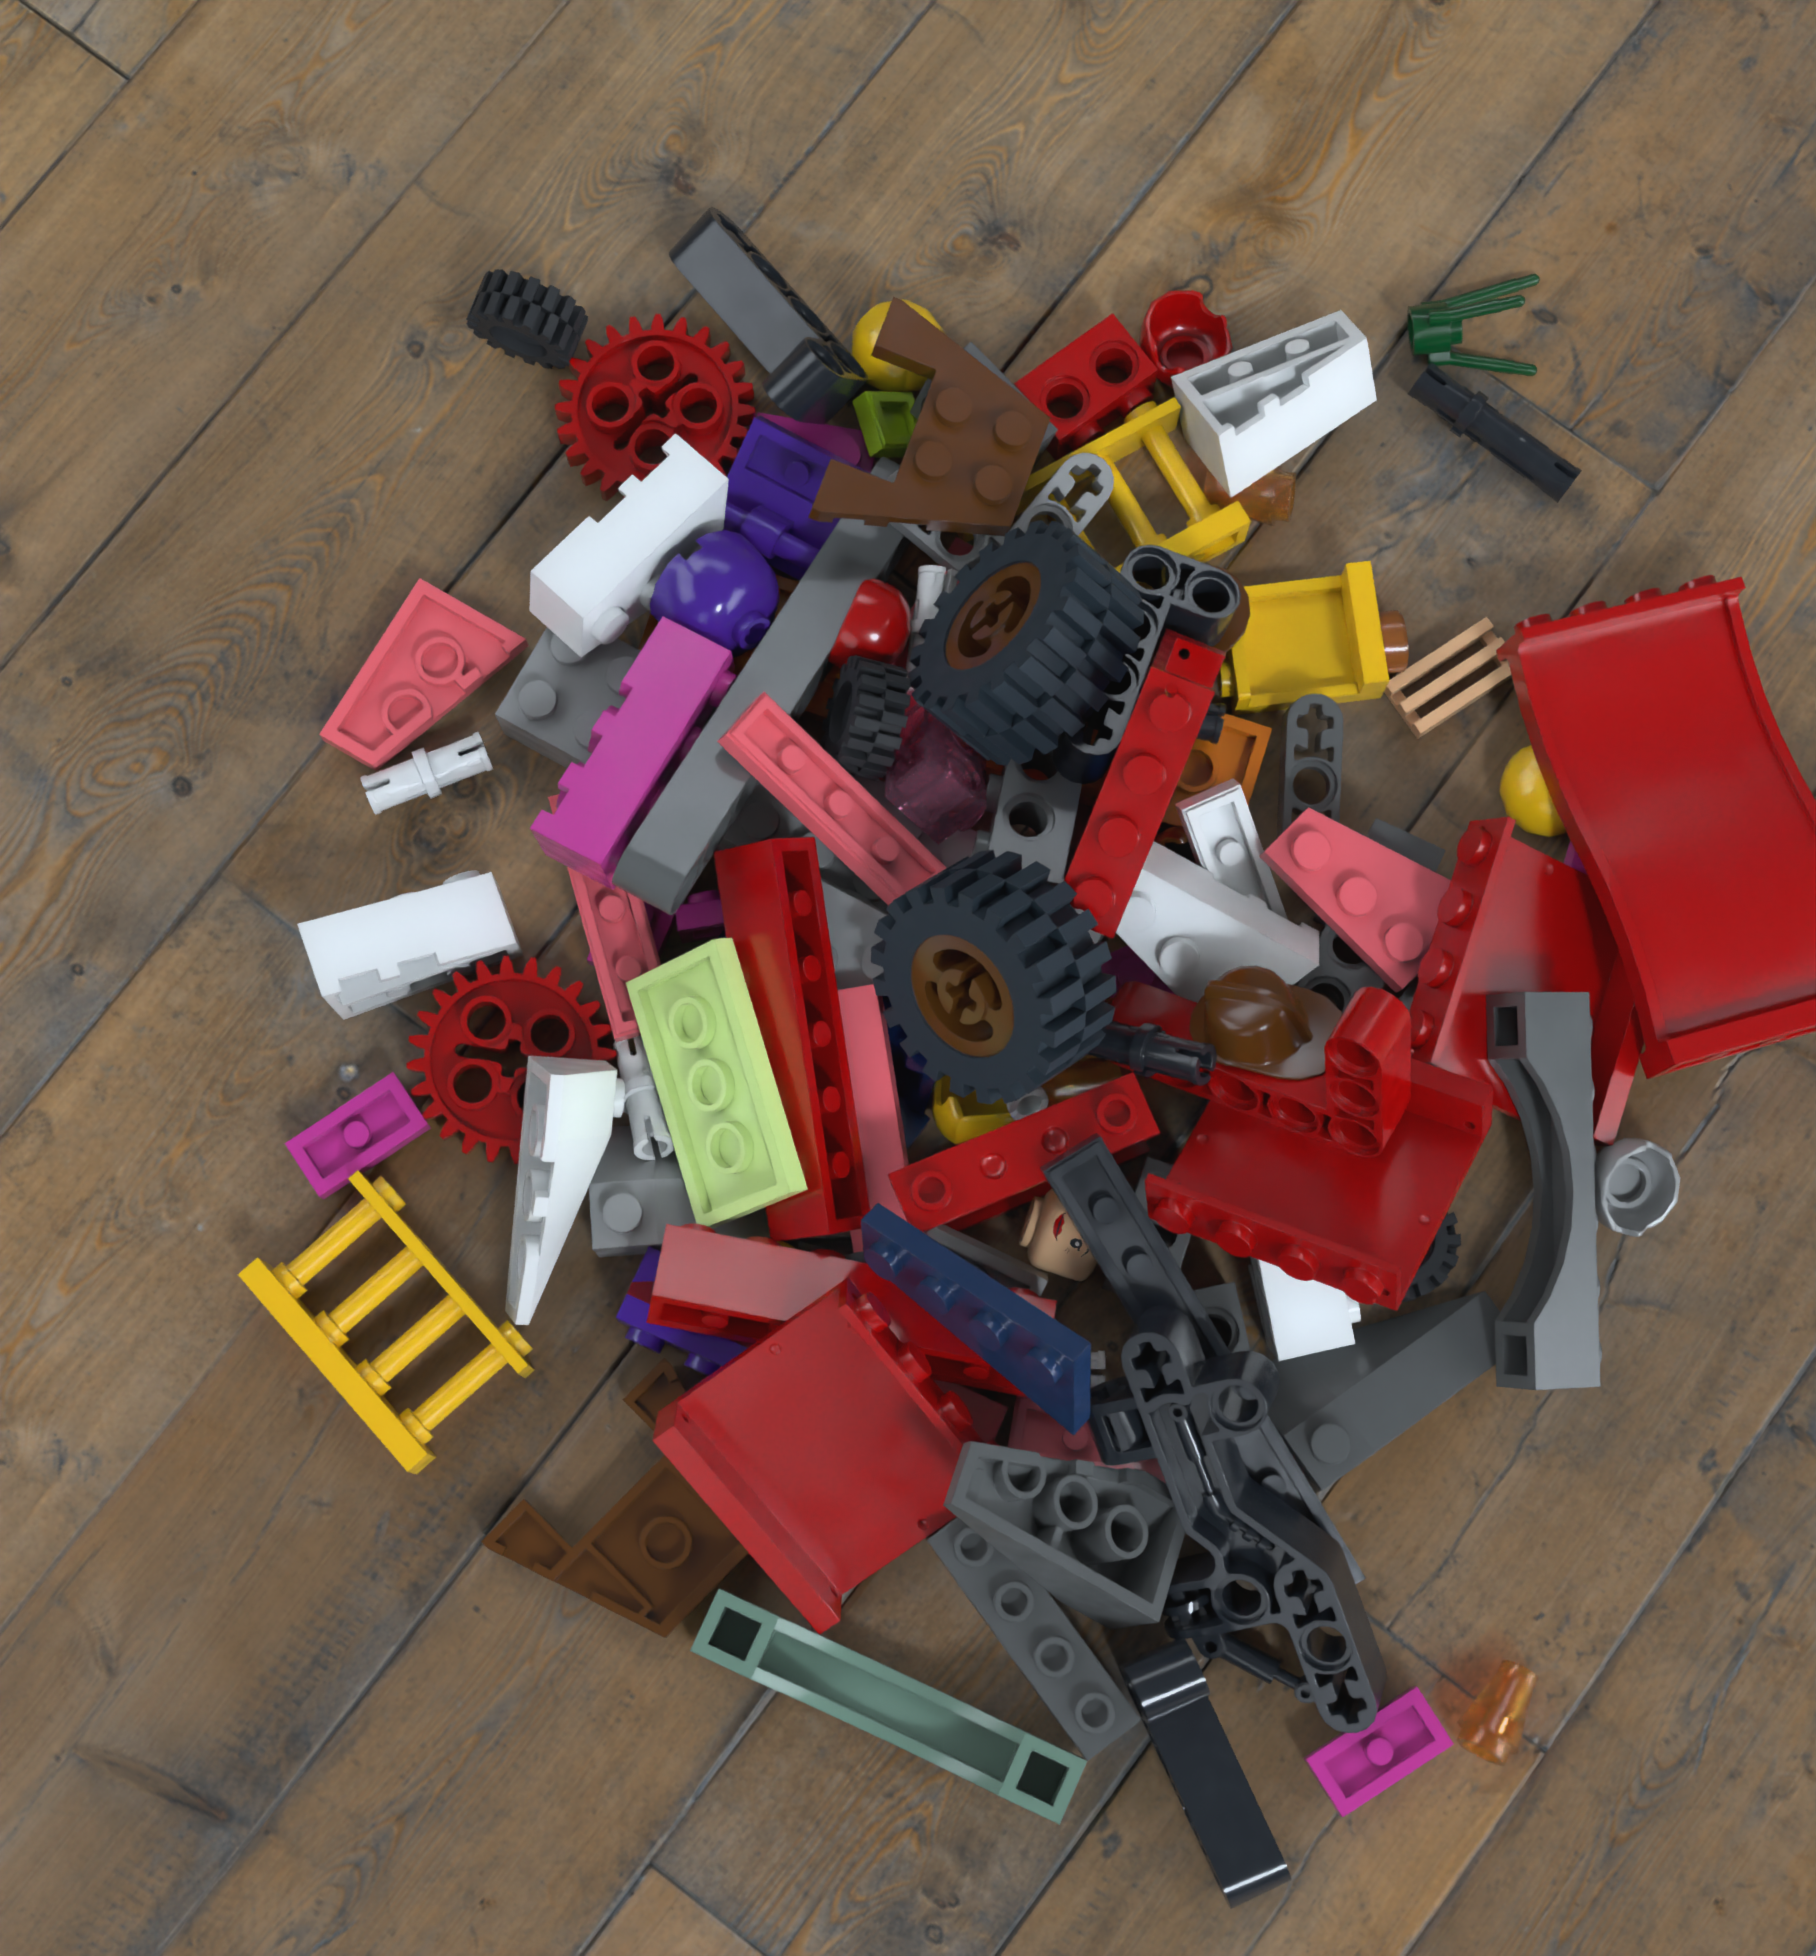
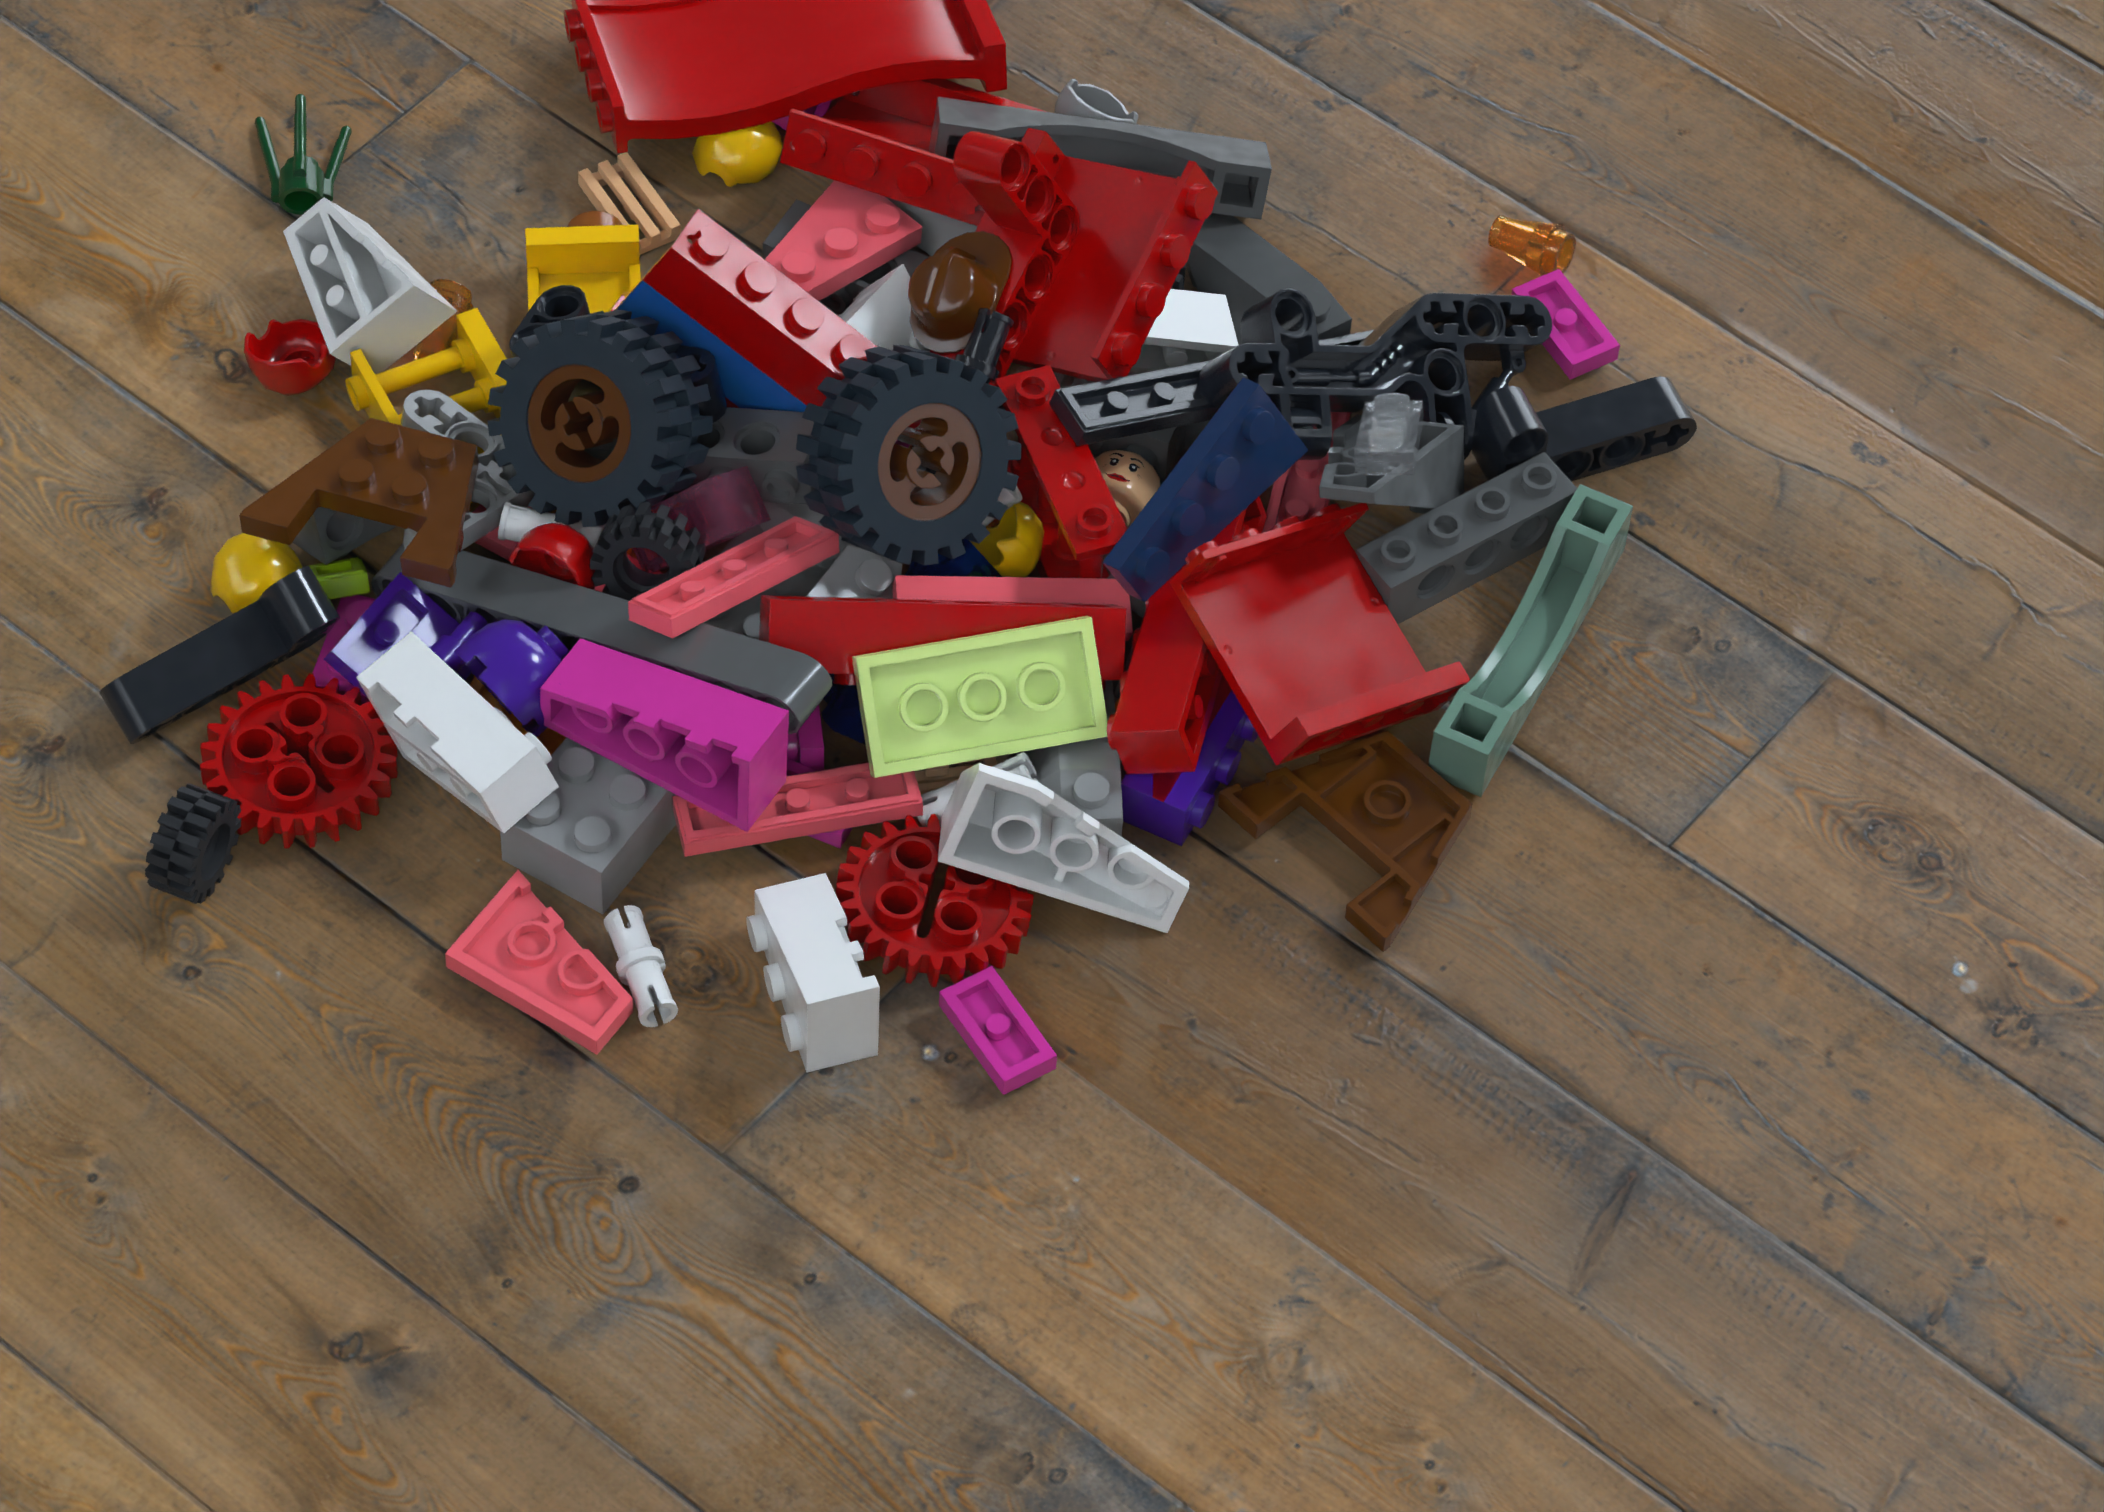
camera: 90 degrees left, 25 degrees down
(366, 1383) = (1190, 1061): yellow fence -> none
(1074, 379) = (309, 413): red brick -> none
(1095, 1529) = (1389, 436): none -> clear plate
(1493, 431) = (389, 165): black pin -> none

